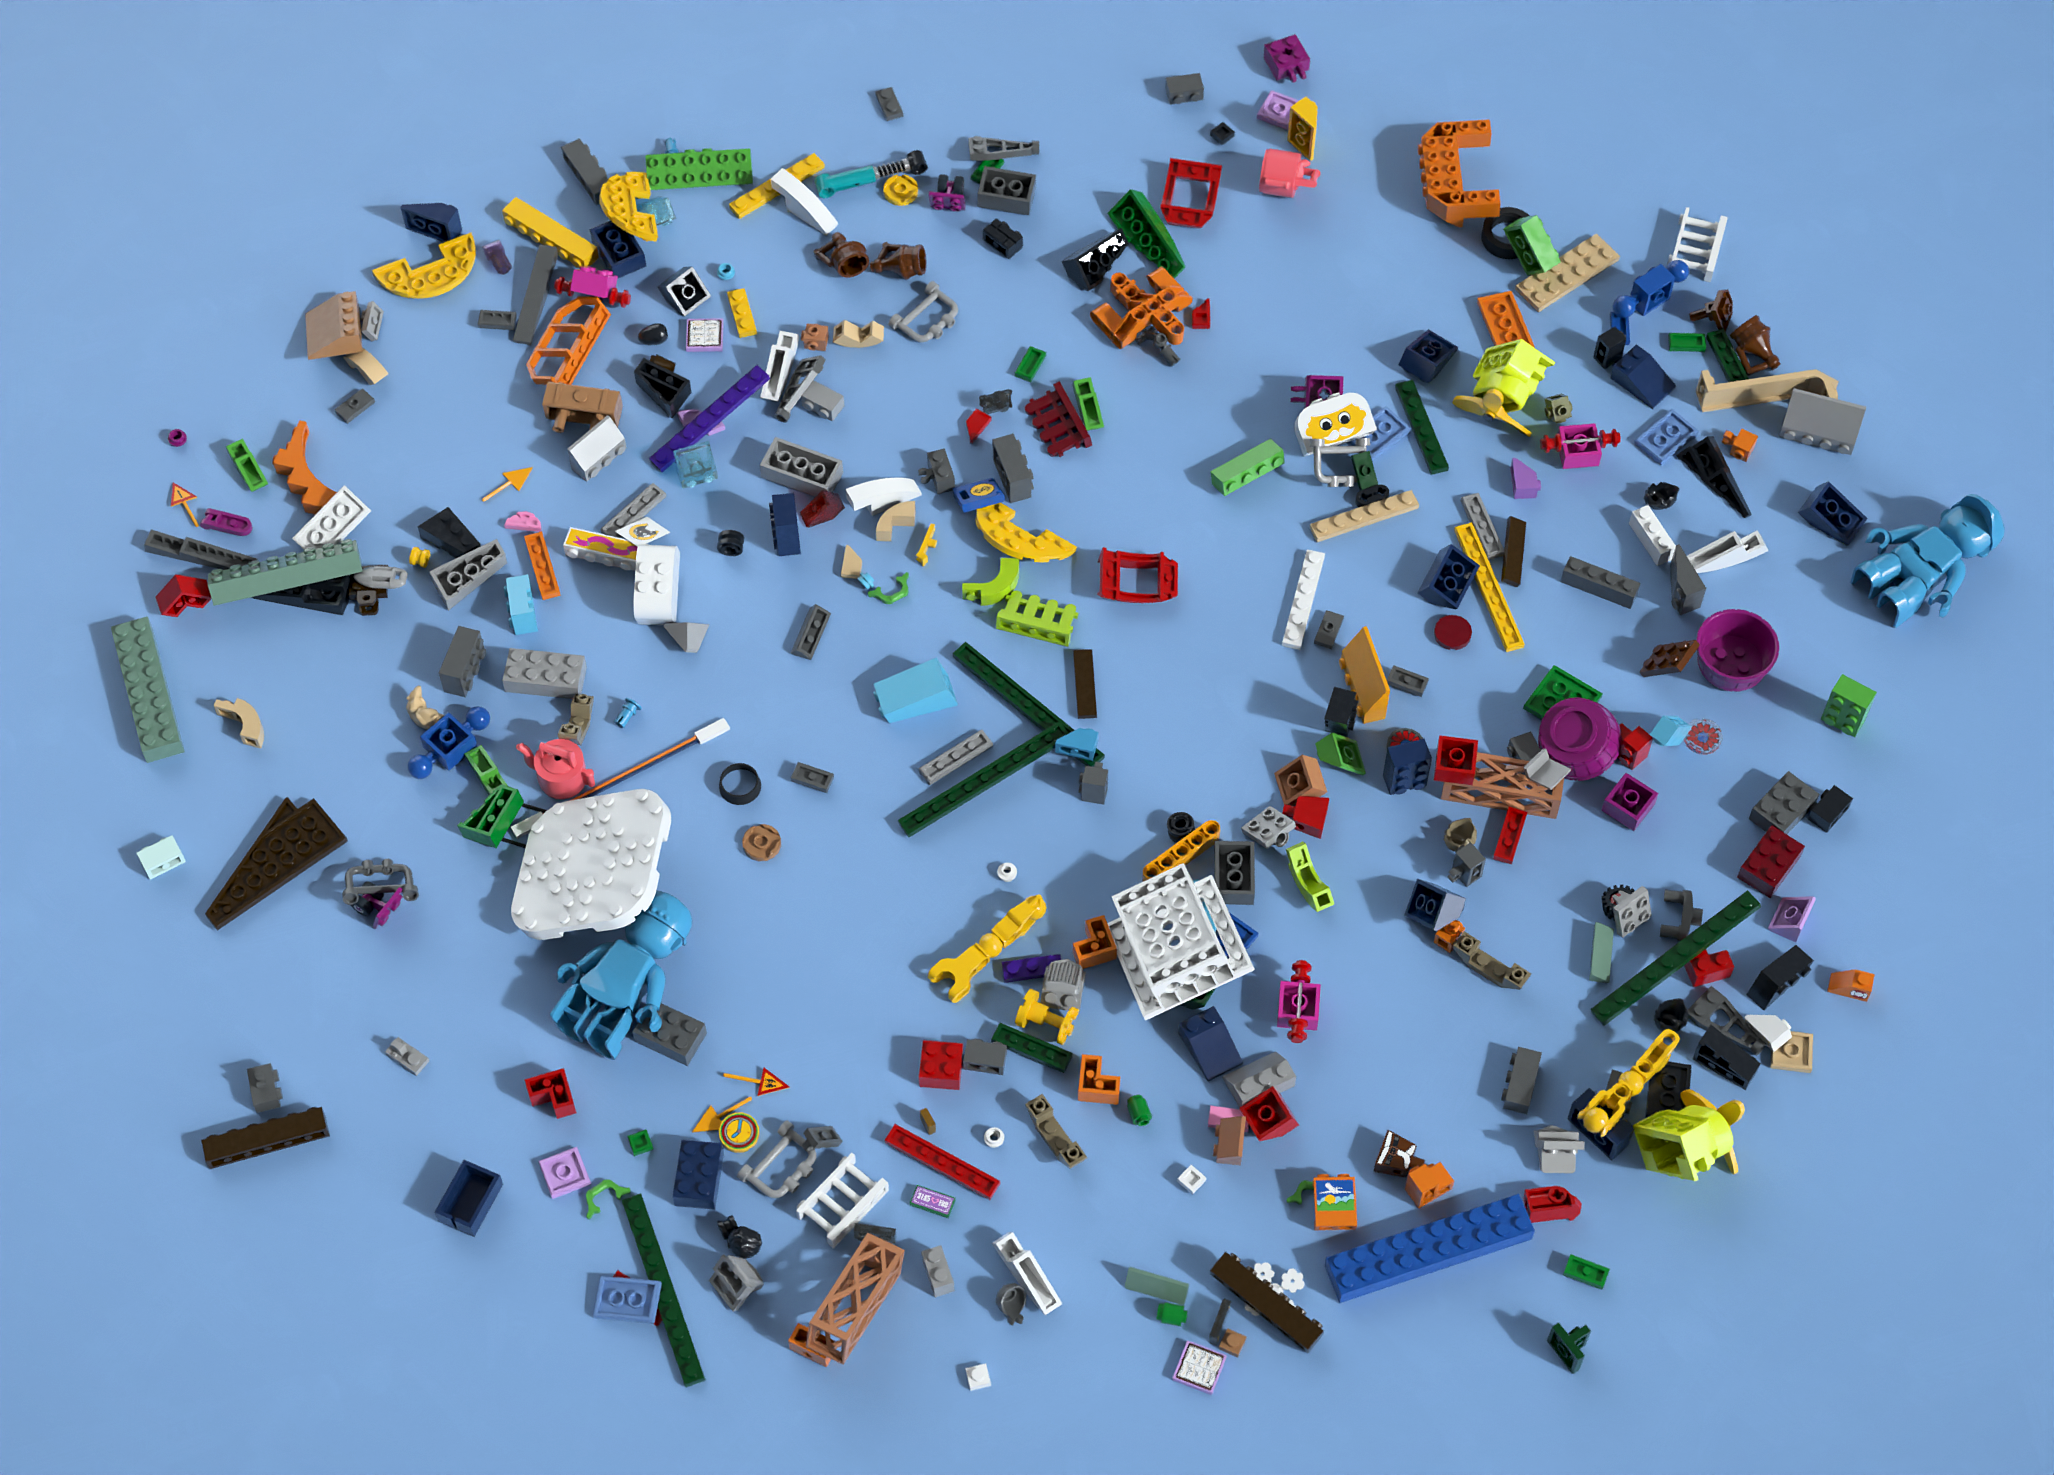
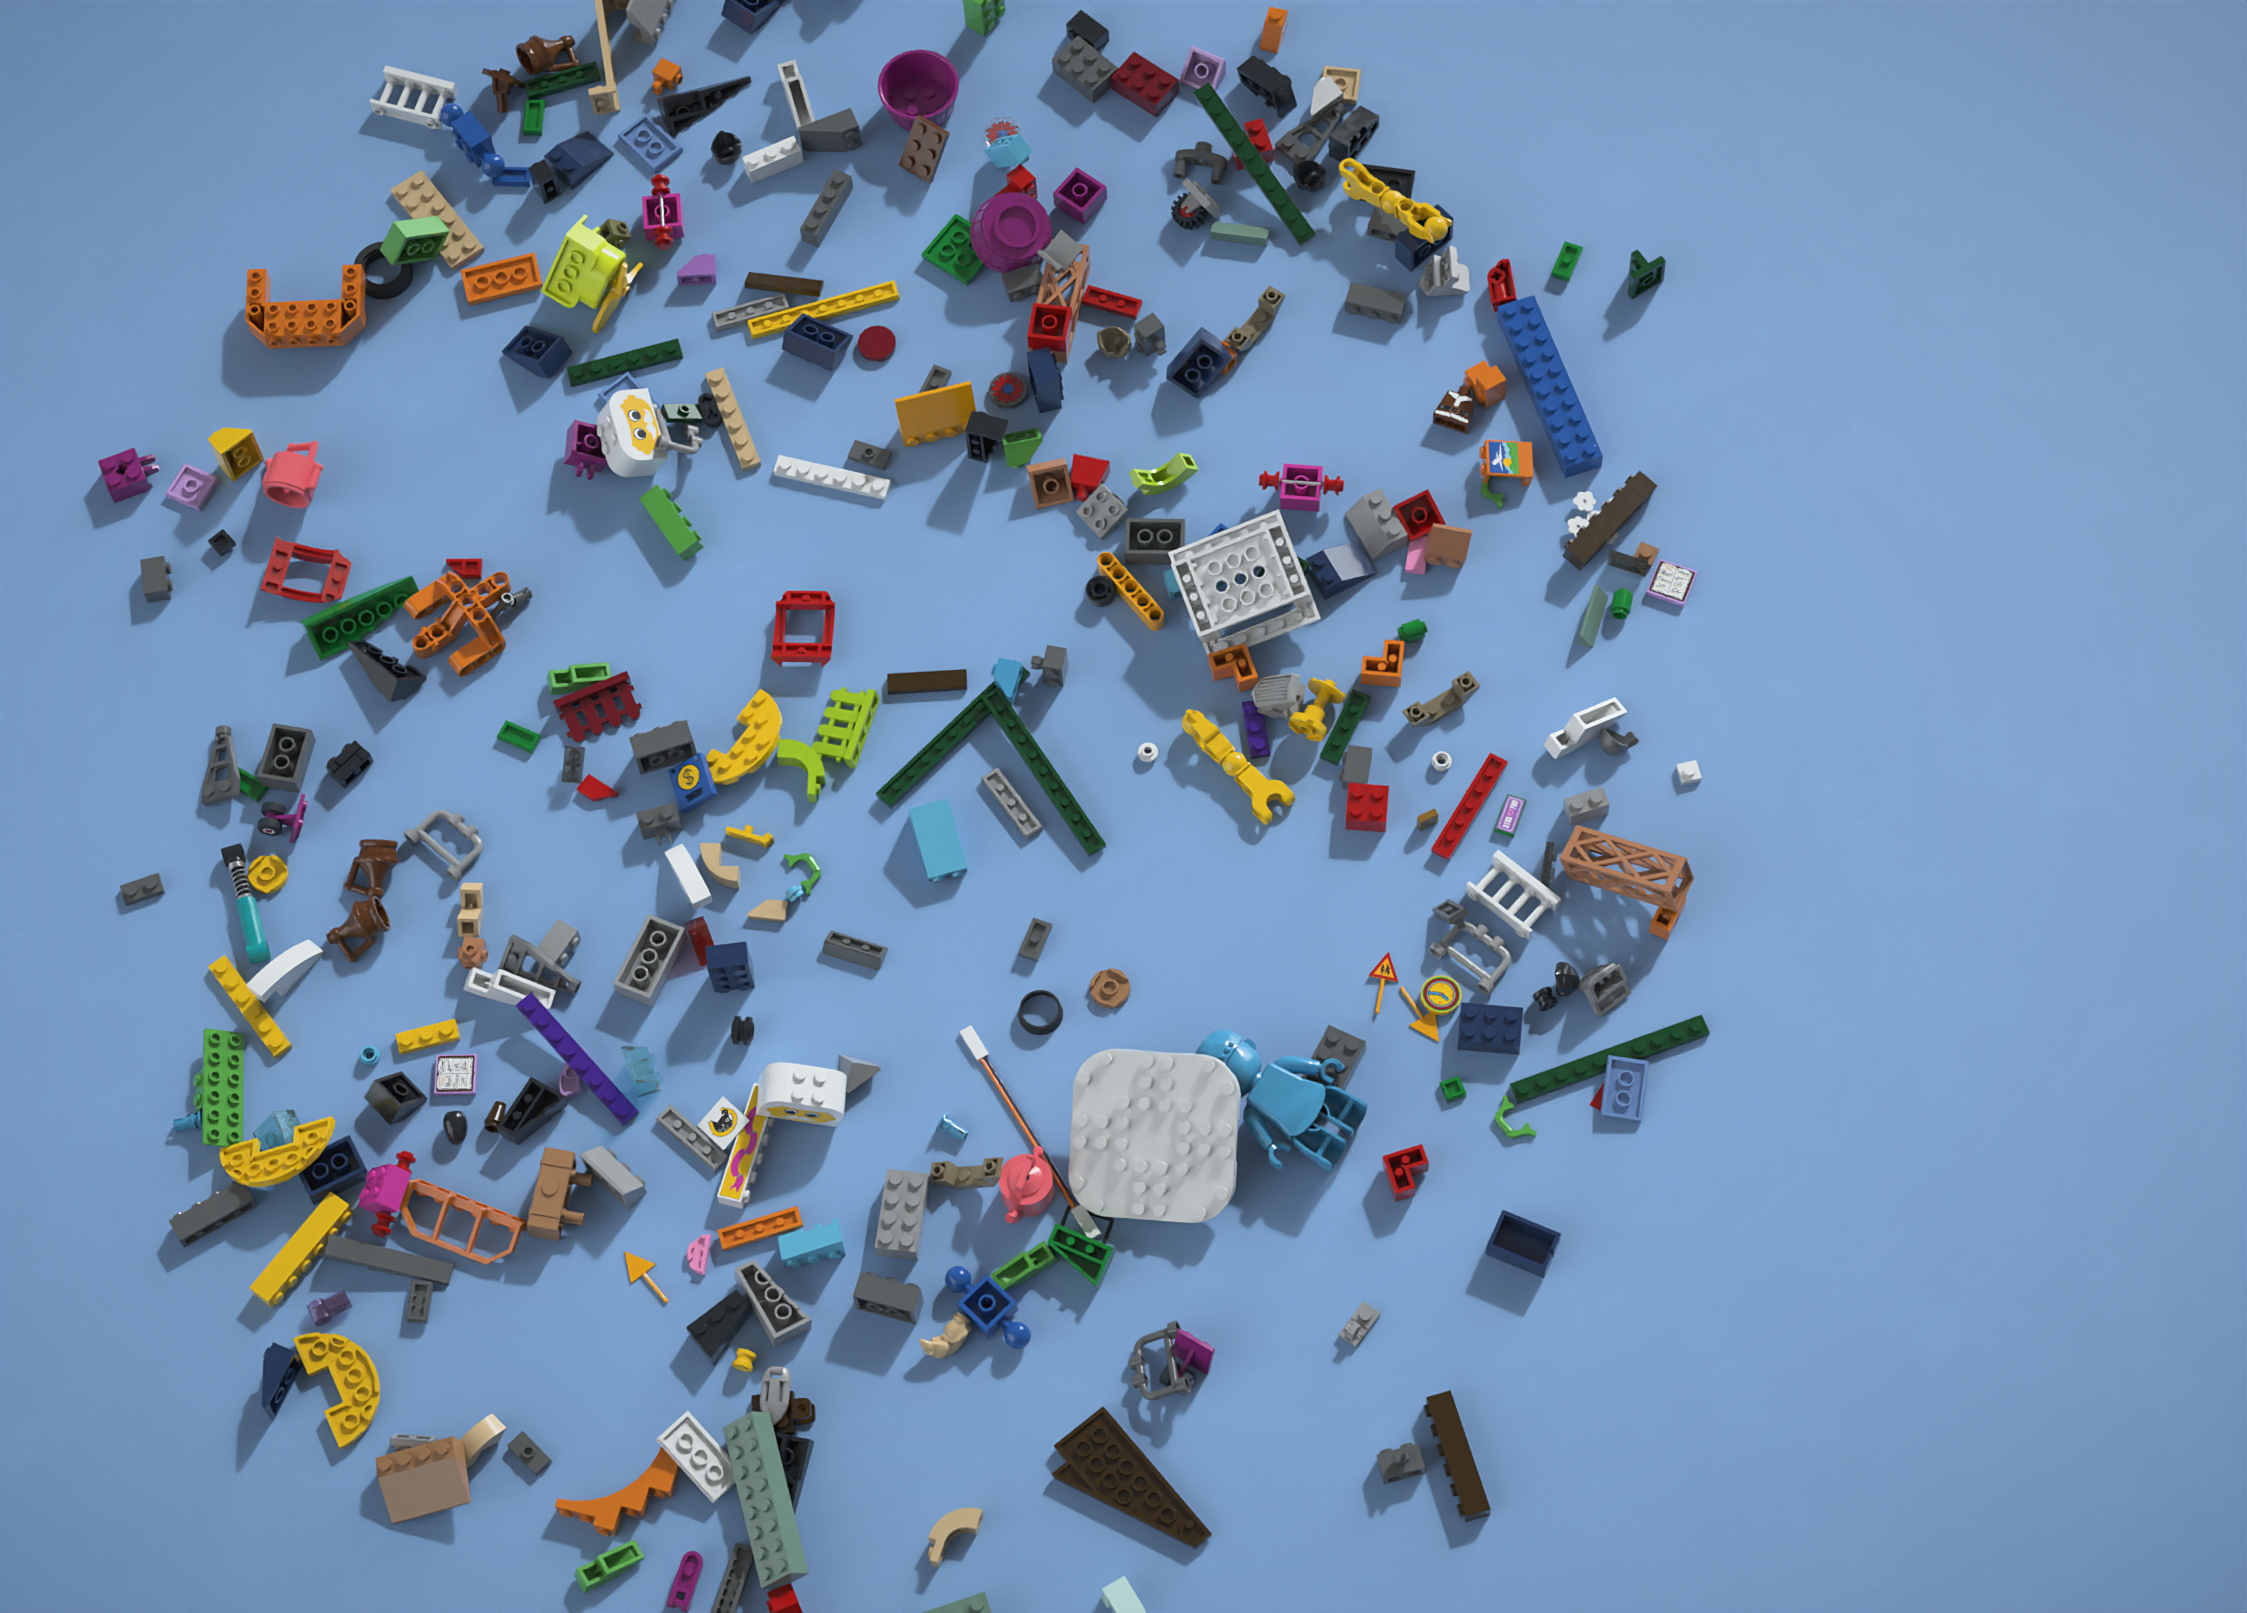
camera: 85 degrees left, 5 degrees up
(564, 1172) = (1487, 1160): lavender tile -> none
(1191, 1179) = (1483, 586): white plate -> none
(1689, 1138) = (1444, 160): neon yellow brick -> none

